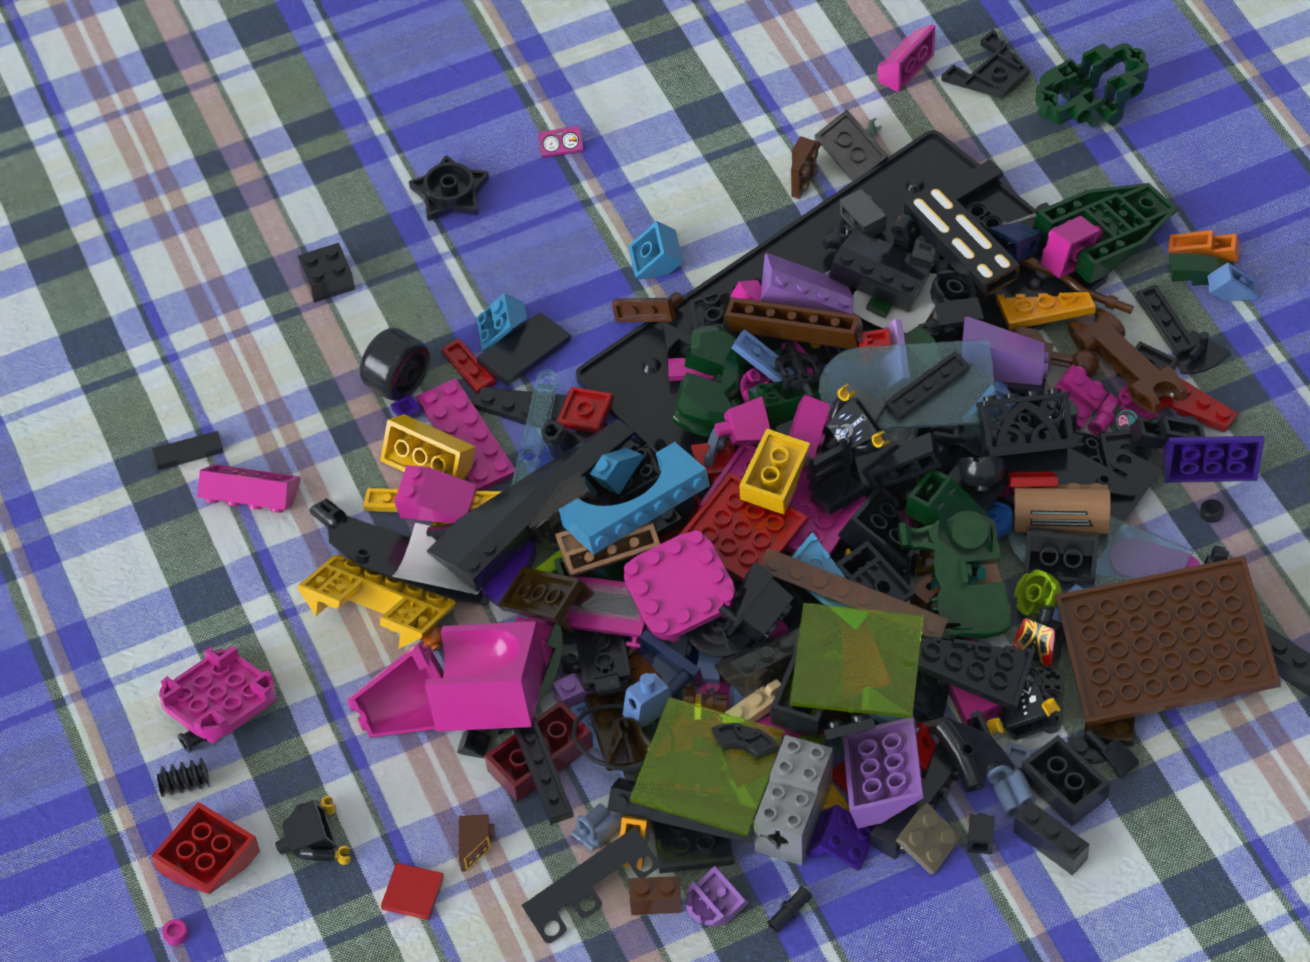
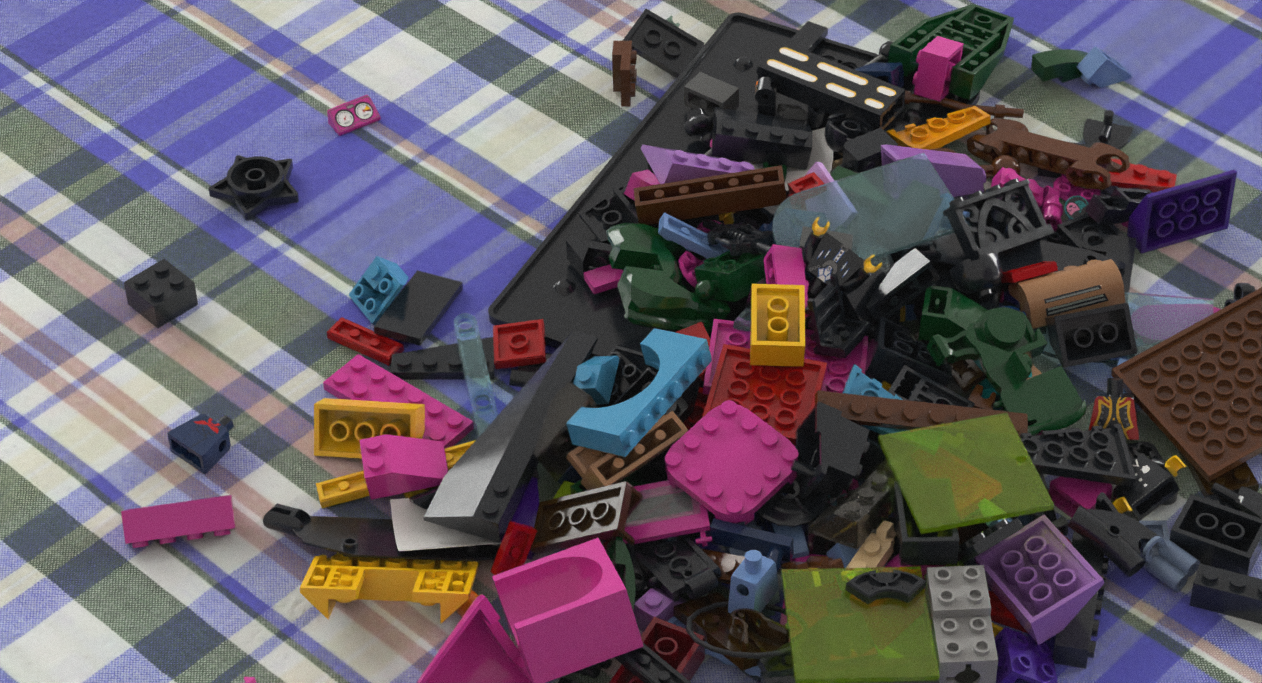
camera: 25 degrees left, 10 degrees down
(187, 450) = (86, 504): black tile -> none
(297, 421) = (201, 441): none -> dark blue torso
(394, 364) = (290, 352): black wheel -> none
(407, 406) = (318, 392): dark purple plate -> none
(484, 602) = (513, 547): none -> red plate
(557, 438) = (507, 376): black plant -> none
(646, 309) = (533, 235): reddish brown piece -> none
(655, 252) = (511, 185): dark azure slope -> none
(716, 444) = (687, 324): sand blue plate -> none
(744, 423) = (715, 297): dark pink torso -> none
(927, 385) = (885, 209): black tile -> none
(928, 838) = (1114, 633): dark tan plate -> none
(980, 833) = (1162, 614): black brick -> none
(1036, 590) = (1088, 374): lime cylinder -> none
(1166, 320) = (1057, 116): black tile -> none
(1206, 243) = (1054, 39): orange slope -> none
(1211, 511) = (1203, 264): black tile -> none

